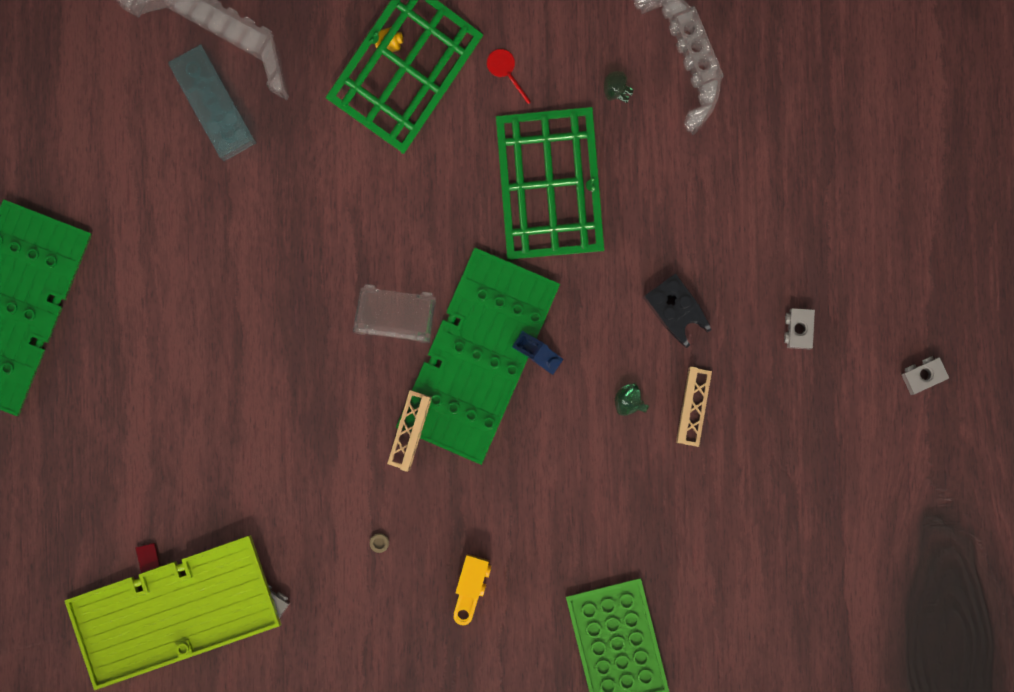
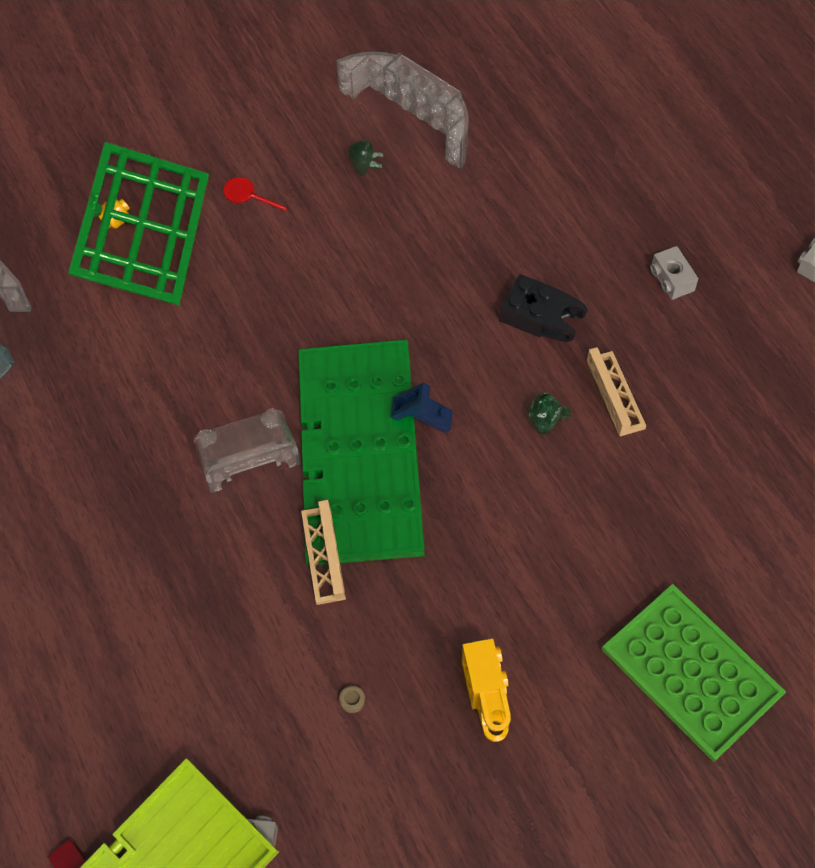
camera: 25 degrees left, 25 degrees down
(591, 185) = (388, 248): green door -> none

